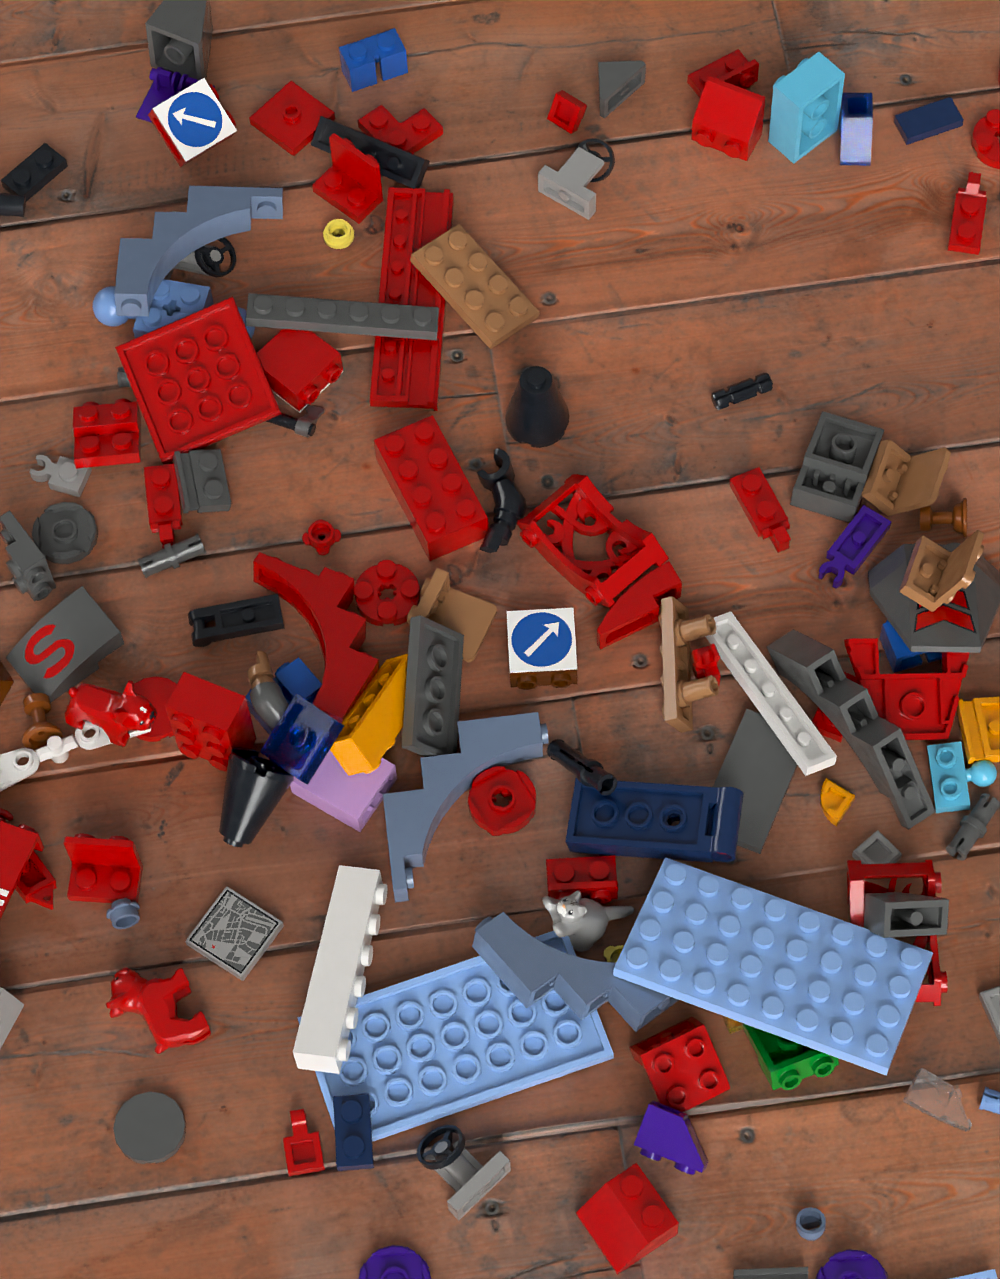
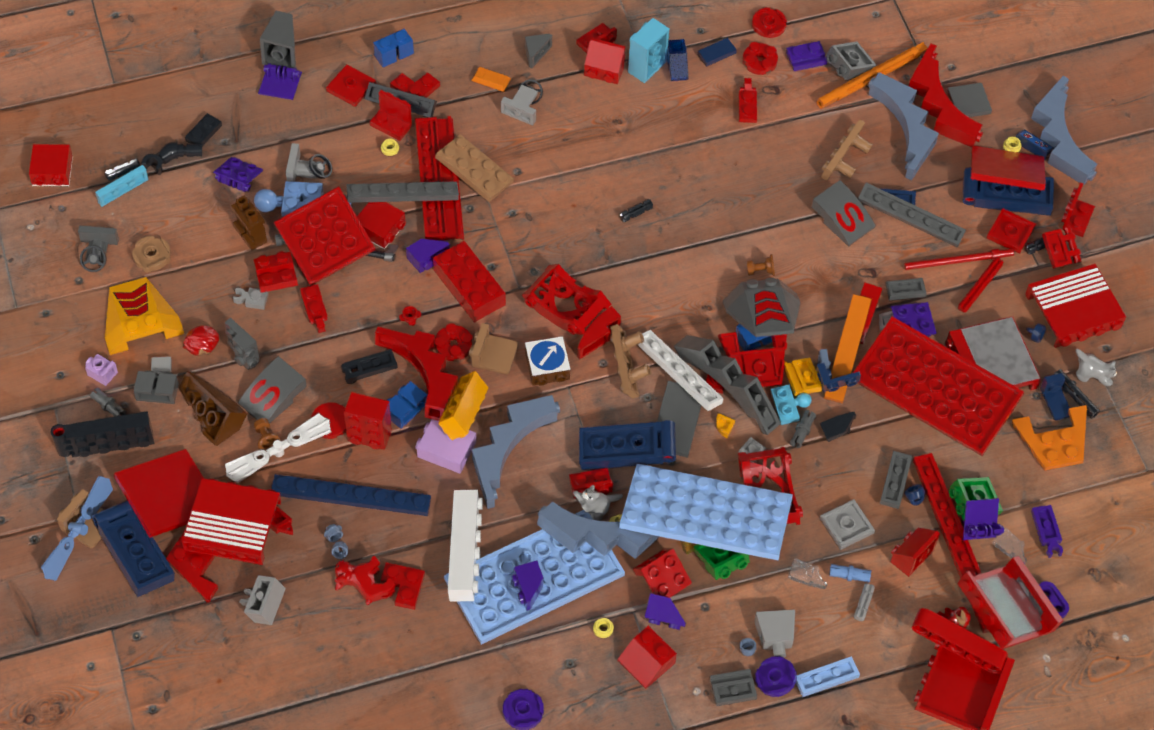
camera: 15 degrees left, 5 degrees down
(65, 533) = (261, 328): dark grey tile -> none
(75, 253) = (237, 173): none -> dark purple hinge
(76, 343) = (249, 223): none -> reddish brown hips
(103, 869) = (317, 508): red bracket -> none
(110, 710) = (309, 421): red animal -> none
(122, 946) = (336, 552): none -> sand blue hinge
(149, 1128) = (369, 645): dark grey tile -> none
(171, 556) = (325, 335): dark grey pin -> none
(173, 849) = (352, 495): none -> dark blue plate
(193, 122) = (294, 92): piece -> none
(202, 481) = (335, 292): dark grey plate -> none
(210, 215) = (315, 143): sand blue arch -> none
(234, 933) = (399, 536): tile -> none
(237, 1019) = (409, 583): none -> red plate
(250, 794) = (397, 458): black cone -> none
(265, 693) = (404, 411): dark grey piece -> none
(302, 739) = (423, 422): clear blue tile -> none
(302, 1149) = (459, 645): red plate -> none
(353, 1132) = (487, 631): dark blue plate -> none
(361, 425) = (422, 253): none -> dark purple slope
(432, 688) = (490, 388): dark grey plate -> none
(441, 1052) = (529, 582): none -> dark purple slope
(461, 1169) = (550, 645): light grey piece -> none
(499, 819) = (540, 436): red plate -> none
(509, 502) = (514, 284): black piece -> none
(531, 130) = (491, 79): none -> orange tile
(537, 409) = (522, 231): black cone -> none
(564, 1141) = (603, 622): none -> light yellow plate
(567, 111) = (510, 66): red tile -> none
(588, 771) = (585, 422): black pin -> none
(706, 662) = (641, 357): red plate -> none
(762, 507) = (658, 272): red hinge -> none
(836, 467) = (696, 246): dark grey slope -> none
(854, 544) = (713, 286): dark purple plate -> none
(866, 1201) = (776, 630): none -> light grey torso
(904, 481) = (735, 249): medium nougat bracket -> none
(905, 914) = (774, 476): dark grey slope -> none
(938, 574) = (763, 294): medium nougat bracket -> none

